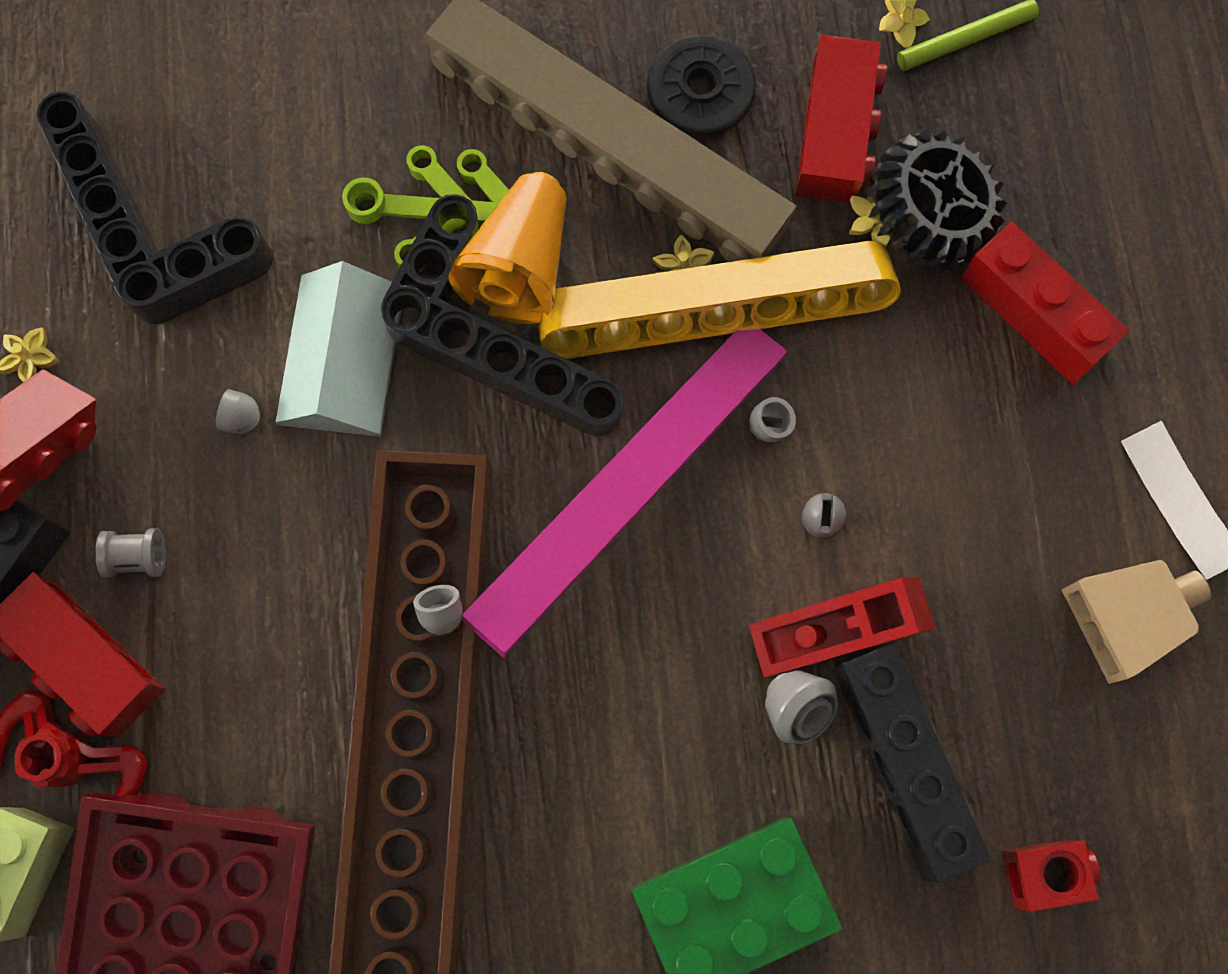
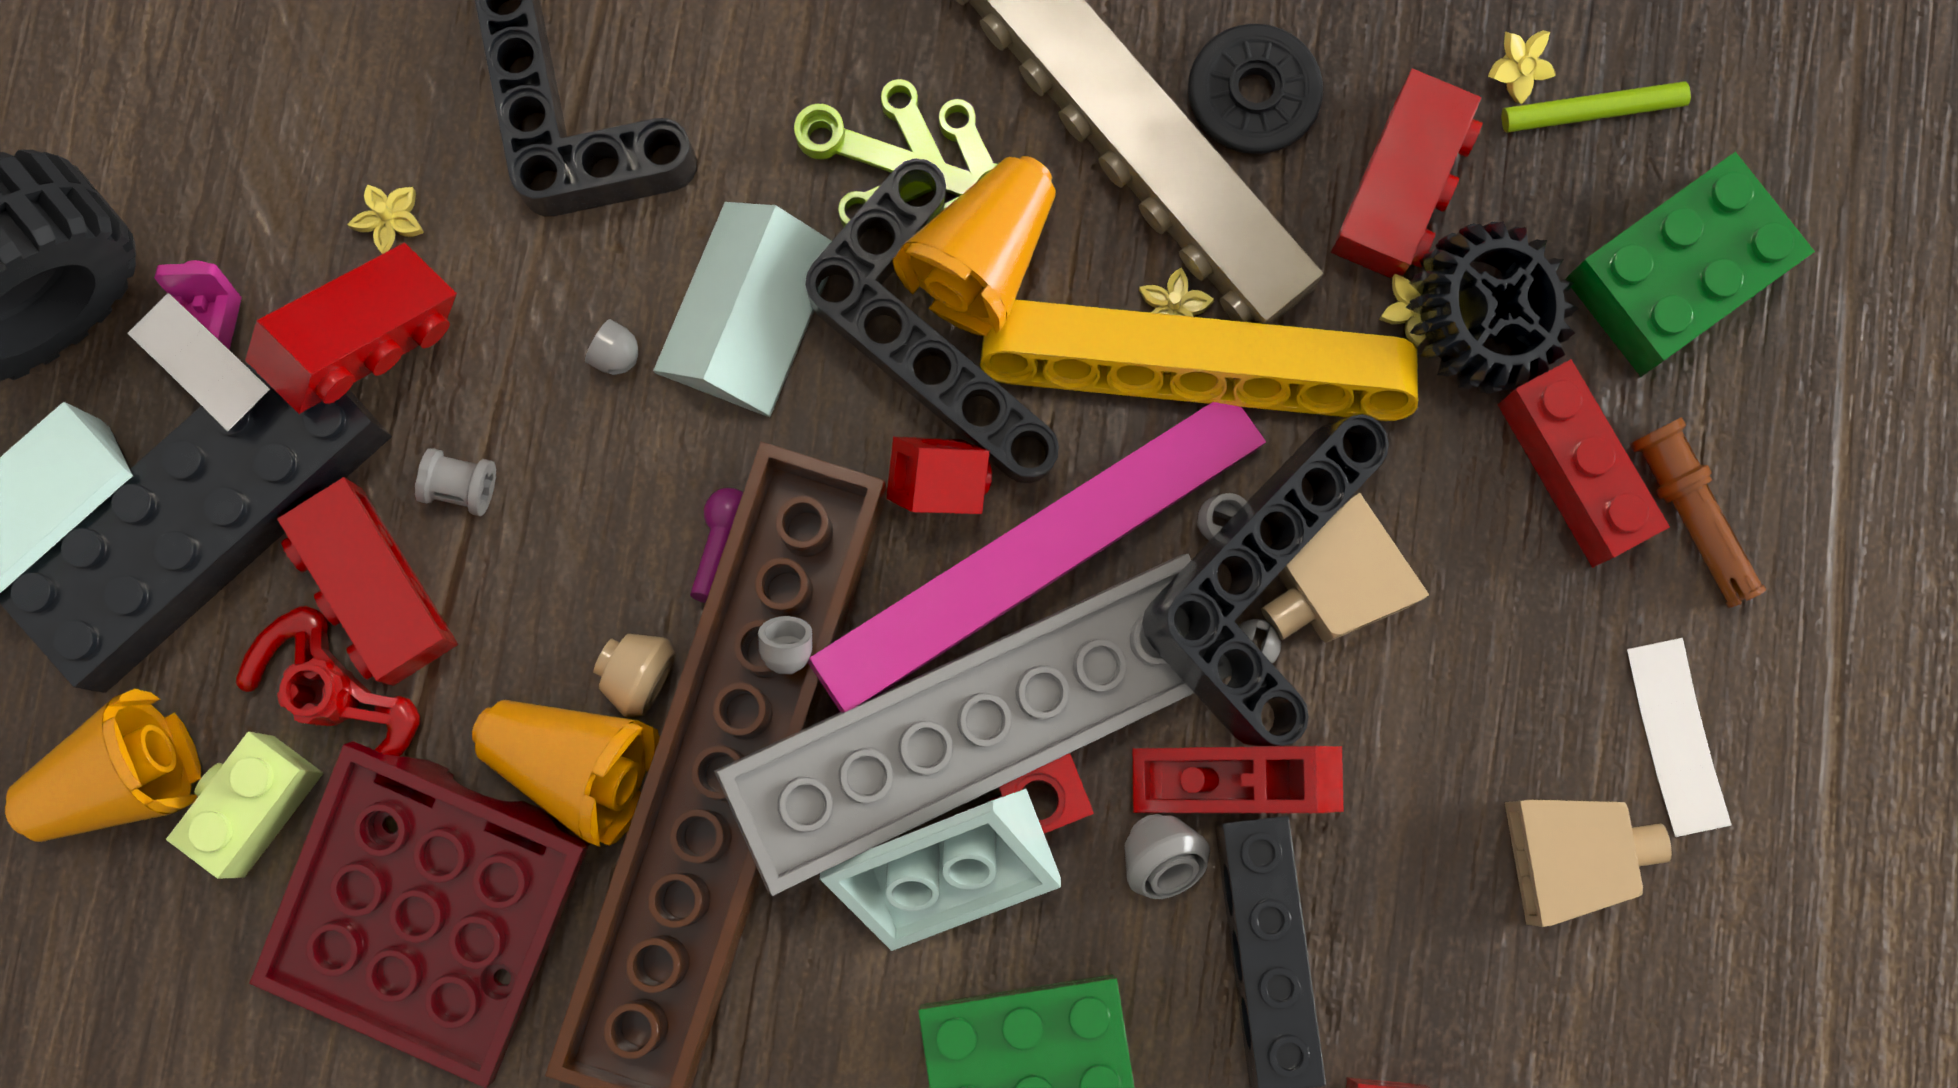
camera: 15 degrees right, 5 degrees up
(281, 761) = (569, 763): none -> light orange cone
(318, 670) = (634, 671): none -> tan cone
(357, 525) = (719, 517): none -> magenta bar
(530, 443) = (938, 475): none -> red brick
(610, 639) = (954, 732): none -> light grey plate
(624, 766) = (948, 872): none -> light aqua slope
(703, 668) = (1067, 785): none -> red brick
(806, 448) = (1252, 569): none -> black beam
(881, 441) = (1344, 578): none -> tan torso
(1077, 130) = (1688, 264): none -> green brick
(1128, 299) = (1685, 484): none -> dark orange pin

